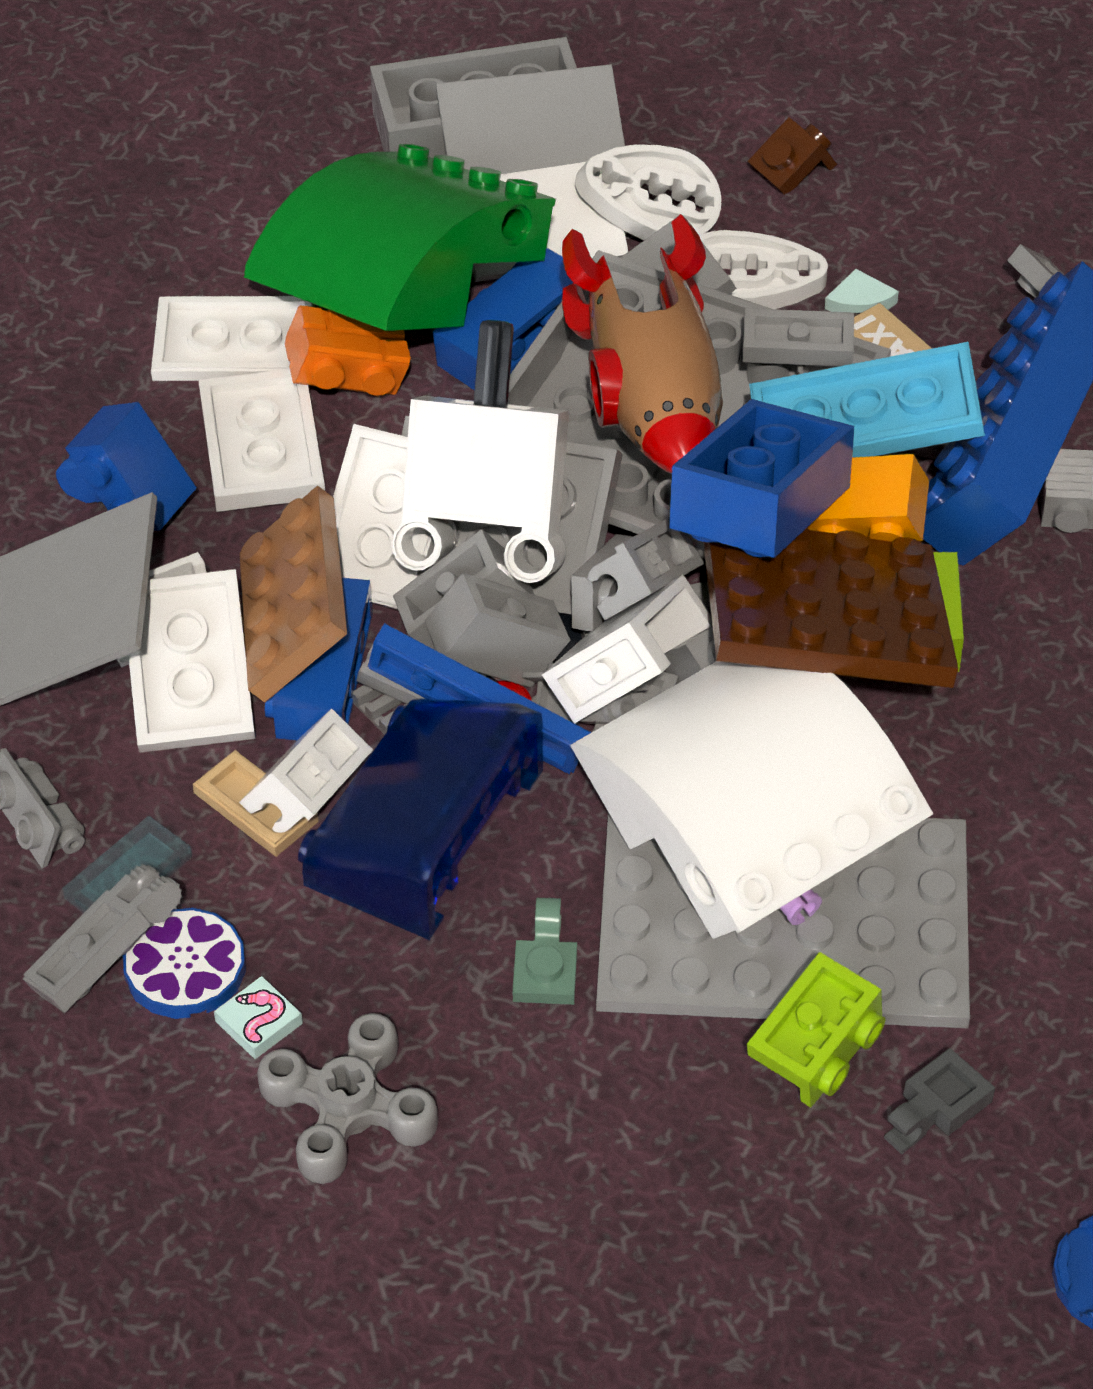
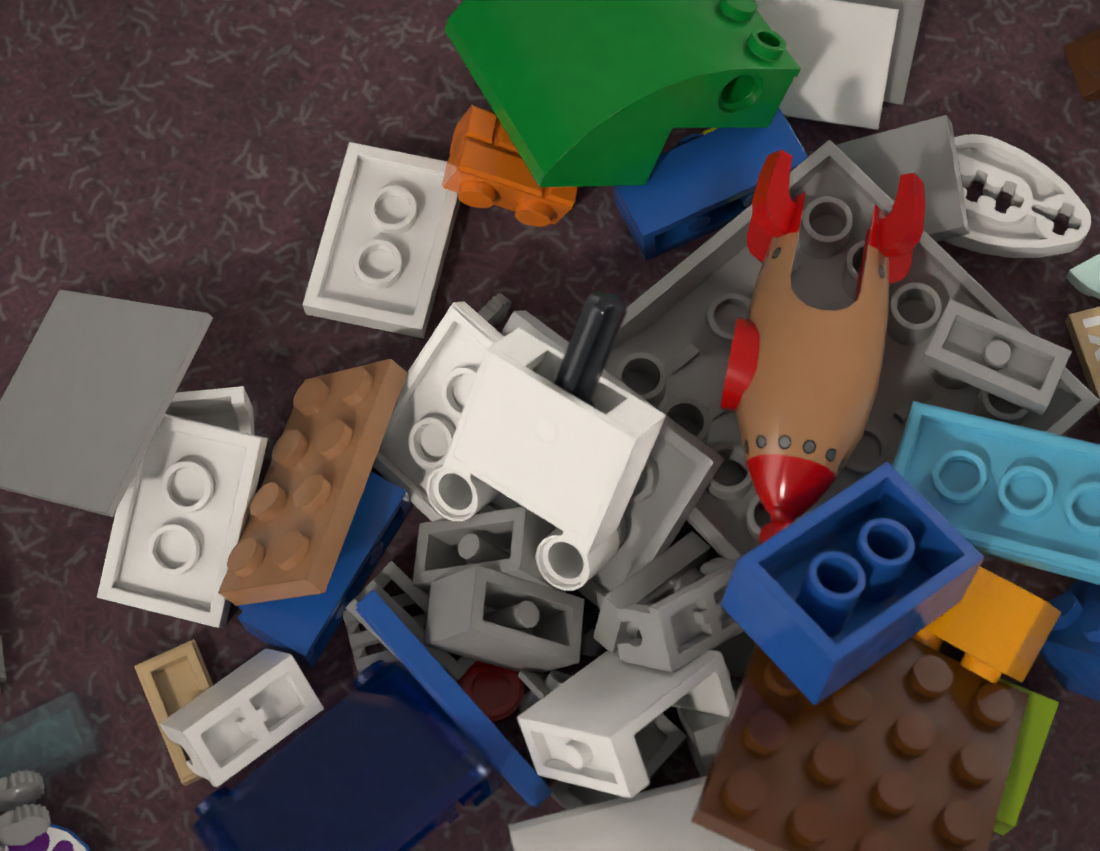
camera: 25 degrees right, 20 degrees up
(122, 459) = (219, 247): blue brick -> none
(221, 335) = (399, 86): white tile -> none
(662, 169) = (953, 42): white piece -> none

